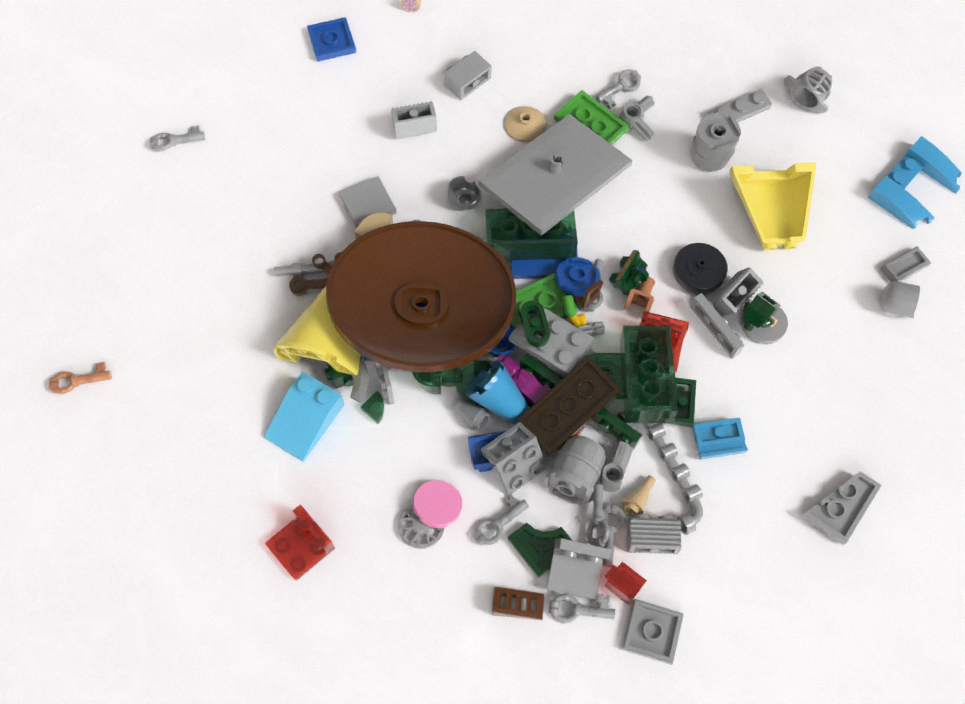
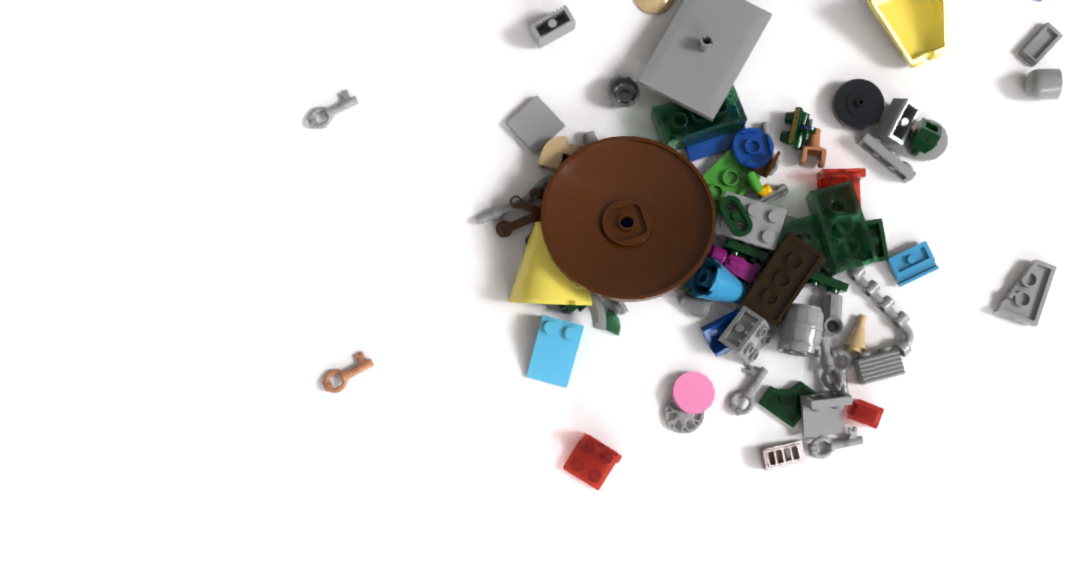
camera: 15 degrees left, 20 degrees up
(652, 631) = (895, 444): light grey tile -> none

